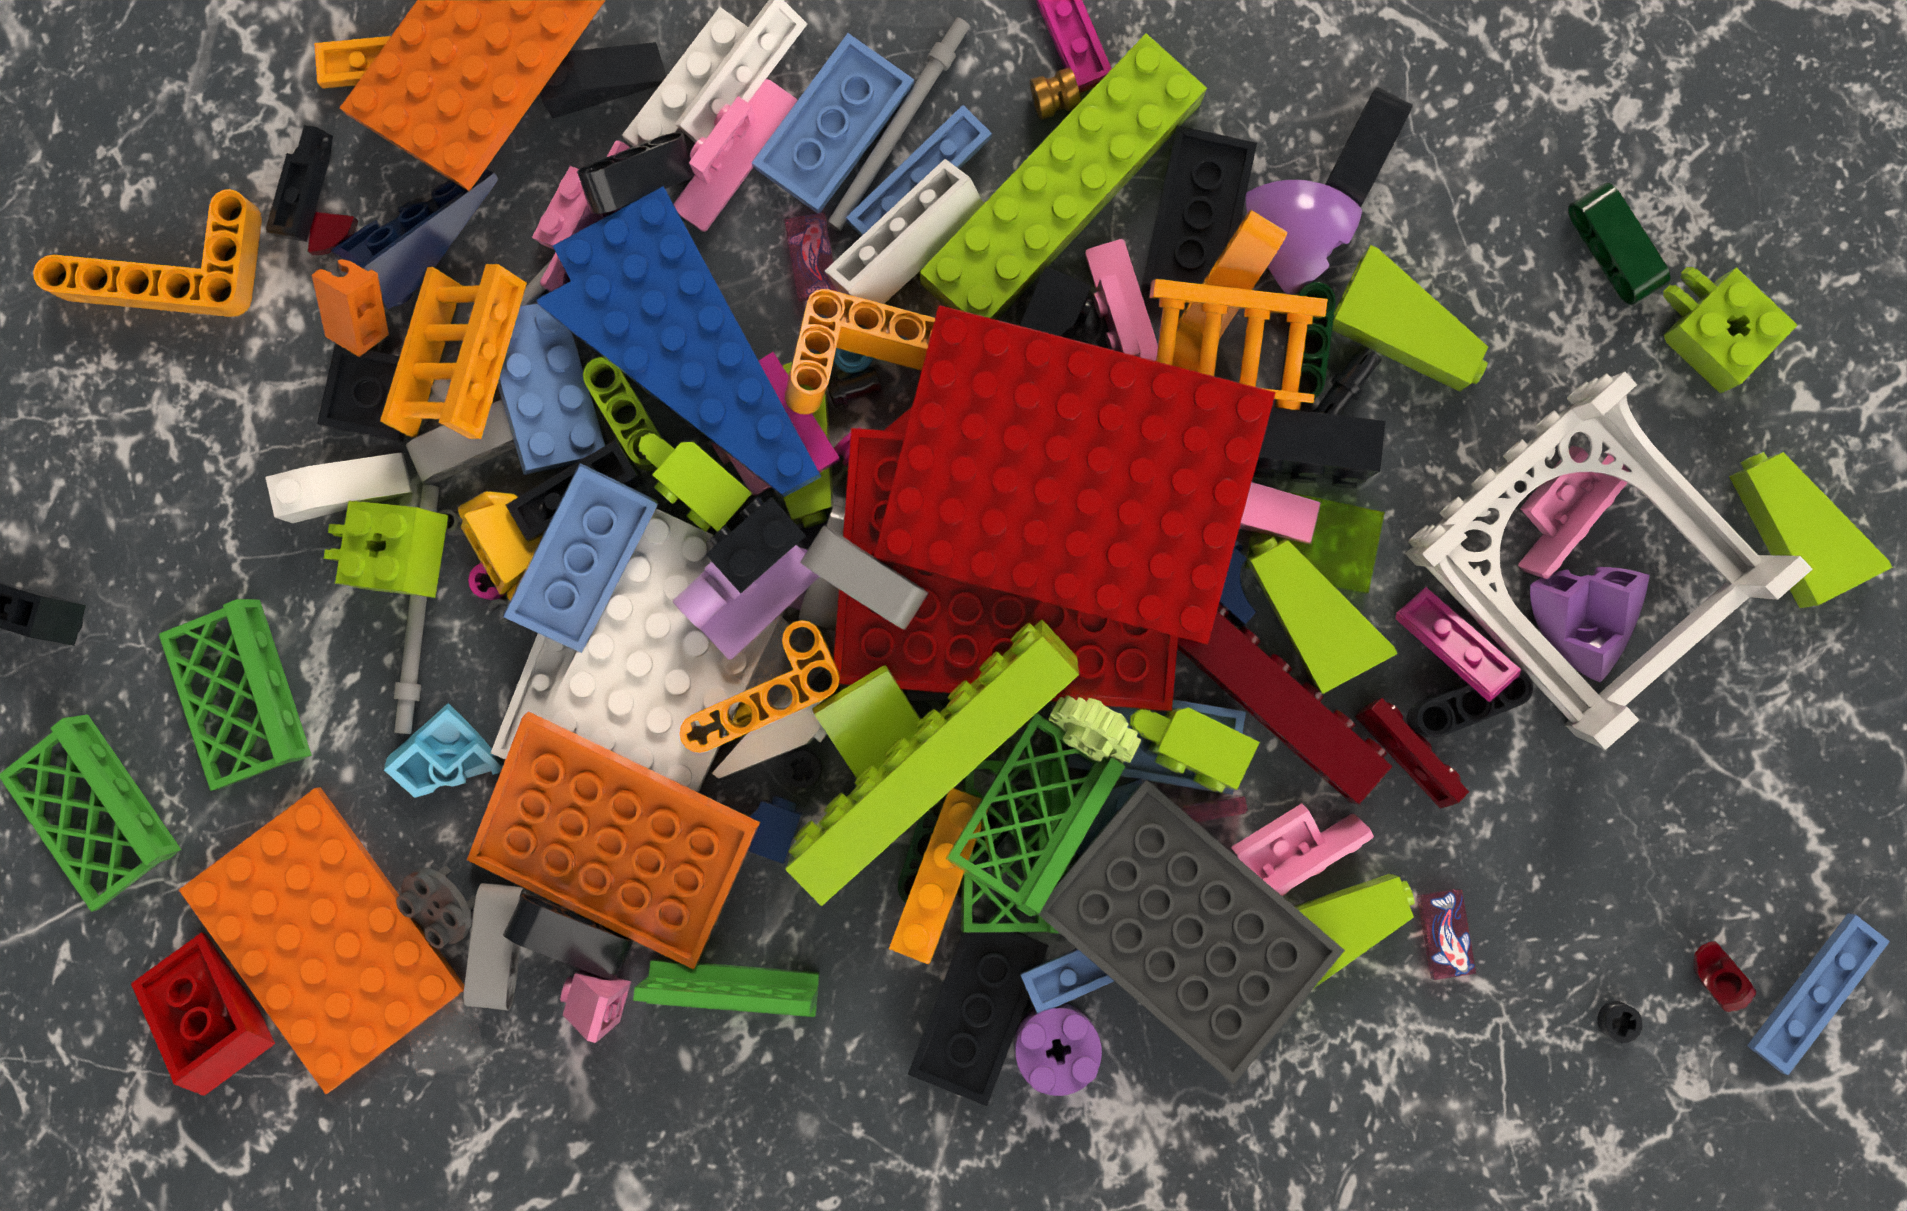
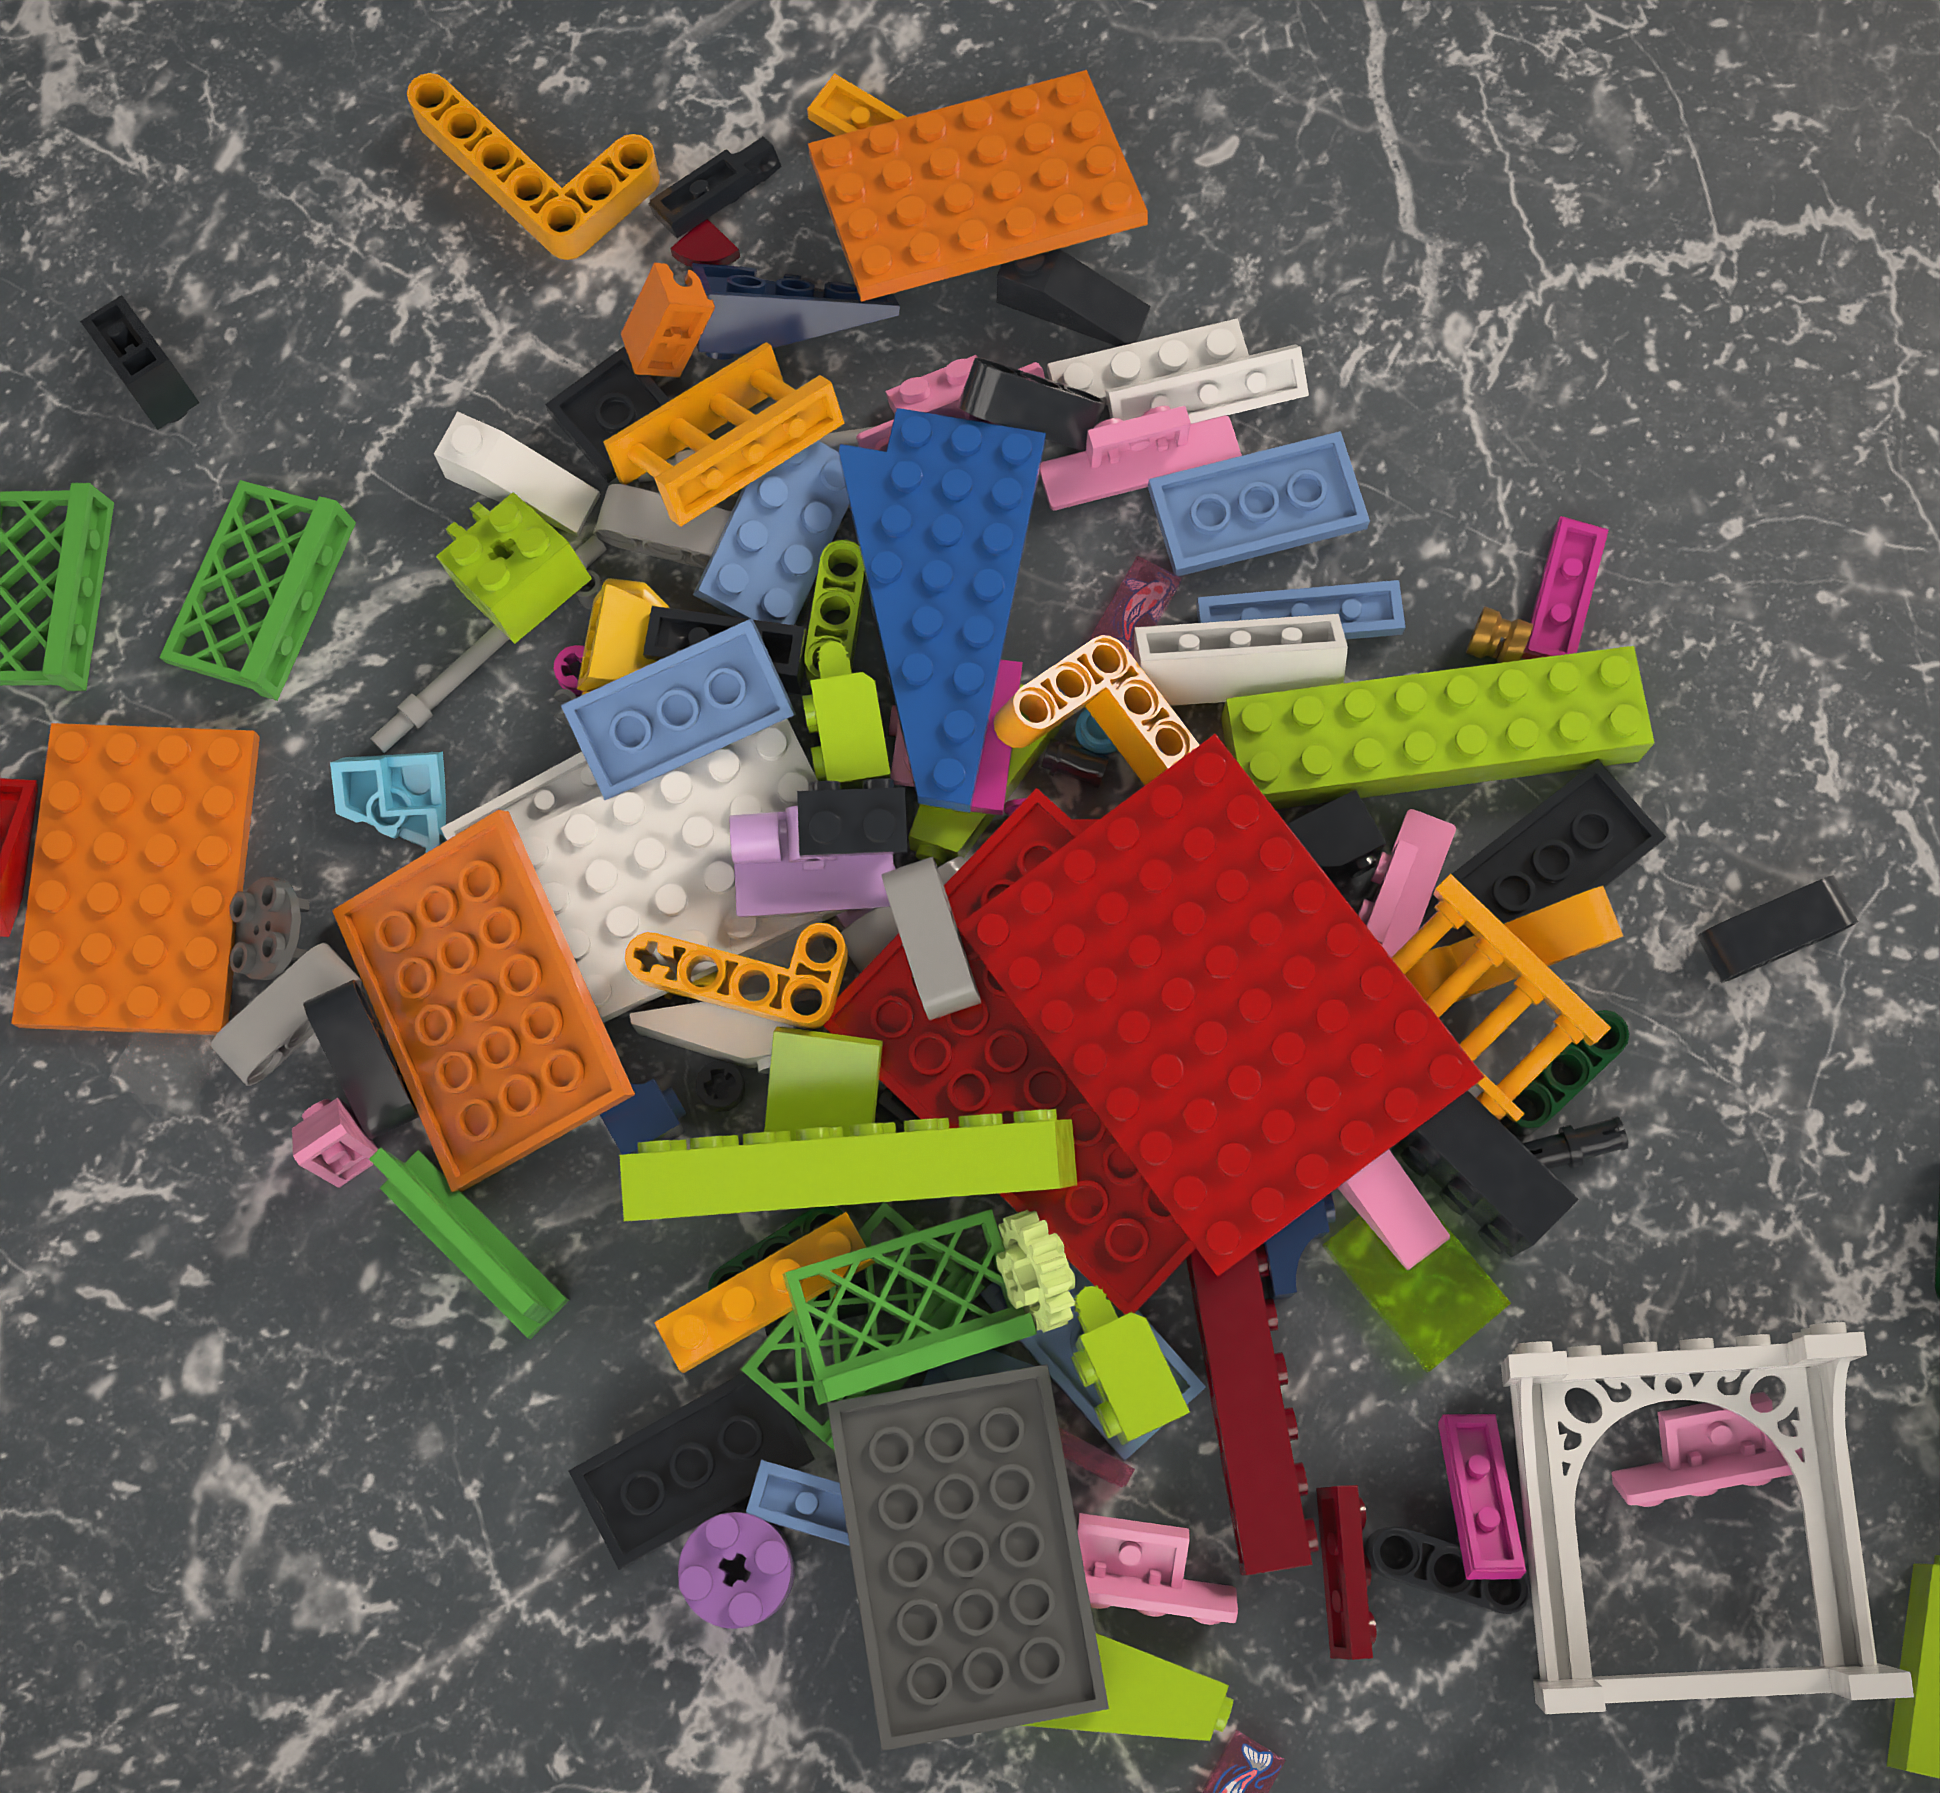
camera: 40 degrees right, 10 degrees down
(939, 59) = (1411, 523): light grey bar -> none
(1316, 223) = (1659, 956): medium lavender brick -> none
(1318, 620) = (1354, 1356): lime slope -> none
(1405, 323) = (1682, 1132): lime slope -> none
(1589, 615) = (1646, 1584): medium lavender brick -> none

